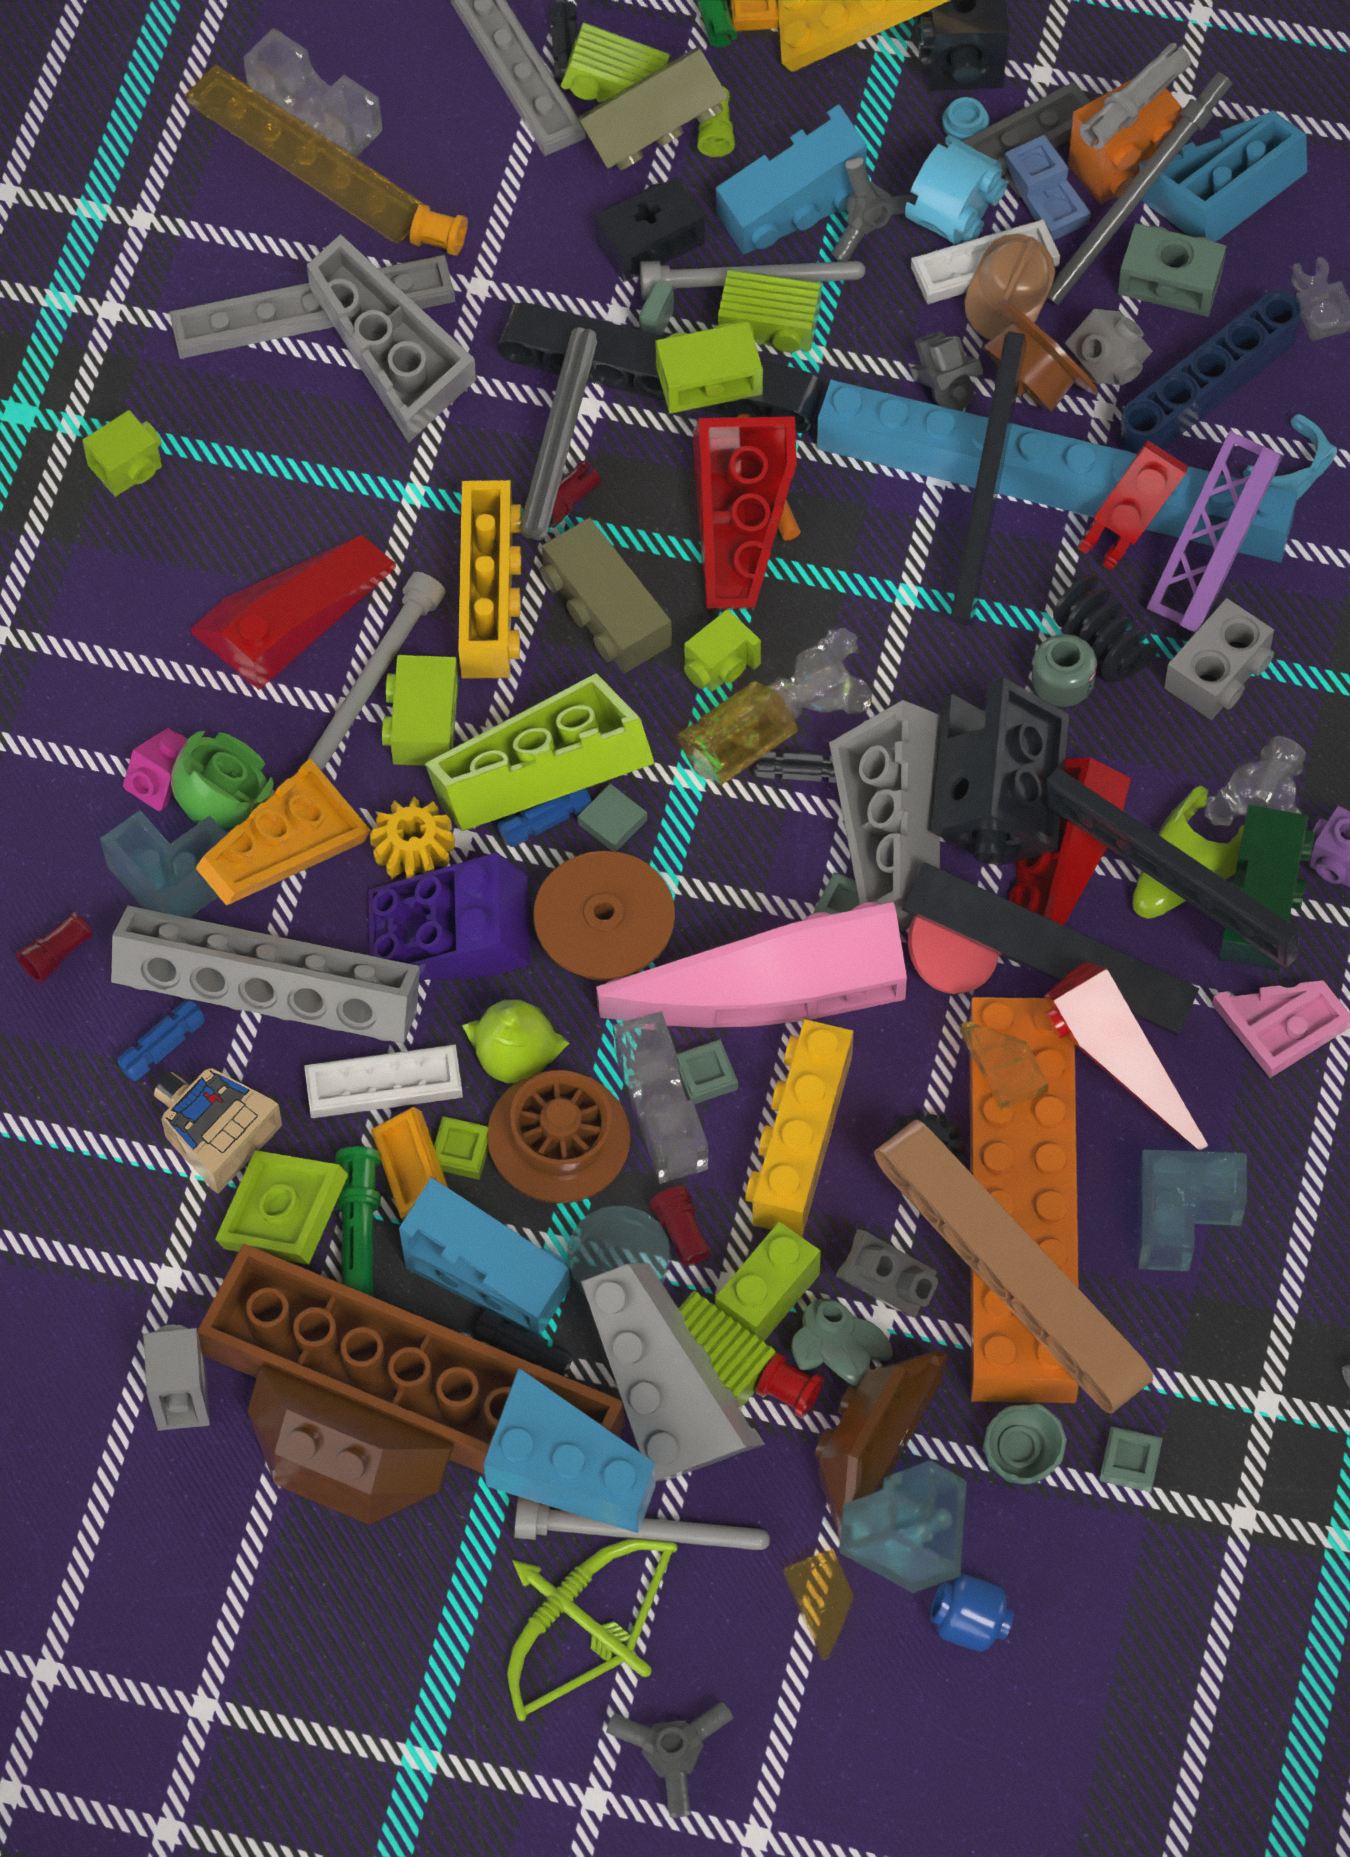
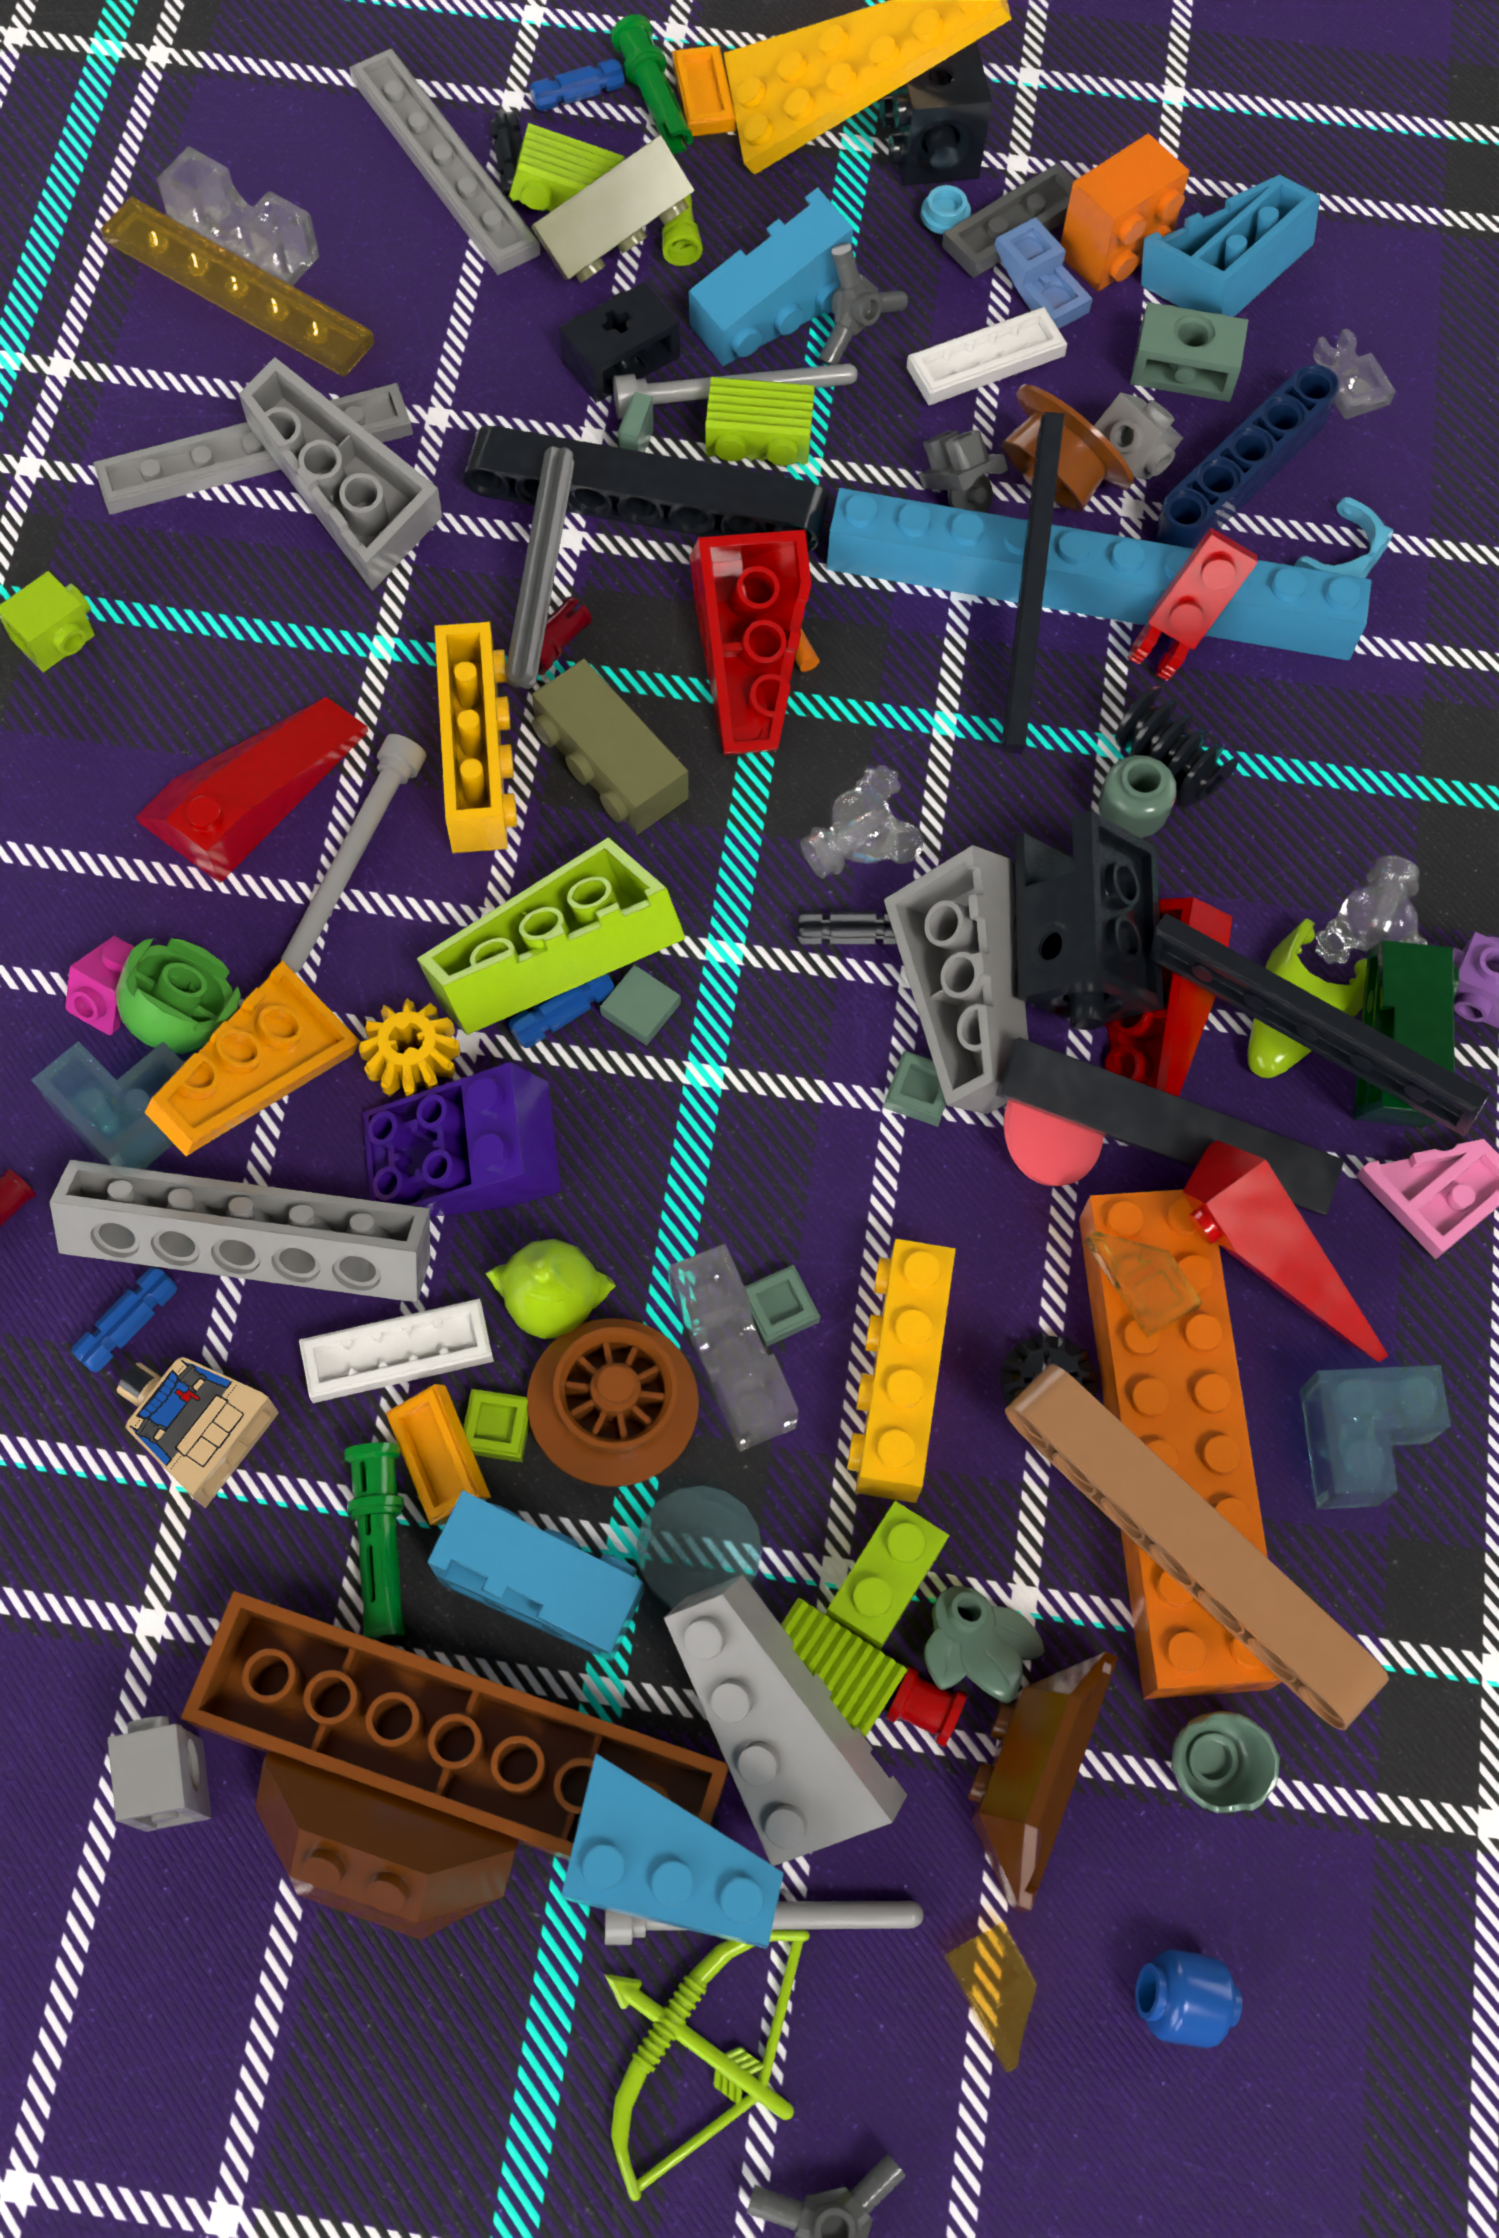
camera: 10 degrees left, 5 degrees up
(282, 1206) = (282, 1528): lime plate -> none
(423, 708) = (410, 892): lime brick -> none
(438, 230) = (387, 356): light orange bush -> none
(522, 1343) = (593, 1678): black axle -> none
(604, 915) = (644, 1127): dark orange piece -> none
(676, 1214) = (765, 1492): dark red pin -> none
(709, 367) = (703, 481): lime brick -> none
(721, 652) = (747, 802): lime brick -> none
(737, 733) = (776, 895): clear yellow brick -> none
(773, 977) = (851, 1187): bright pink wedge -> none
(888, 1274) = (1033, 1554): dark grey hips -> none
(909, 1528) = (1111, 1897): clear light blue brick -> none
(956, 191) = (949, 278): medium azure brick -> none
(1012, 270) = (1014, 357): medium nougat piece -> none
(1123, 106) = (1131, 167): light grey pin -> none
(1131, 1459) = (1348, 1762): sand green tile -> none
(1193, 117) = (1202, 182): dark grey bar -> none
(1212, 655) = (1302, 770): light grey brick -> none
(1231, 539) = (1311, 632): medium lavender fence -> none

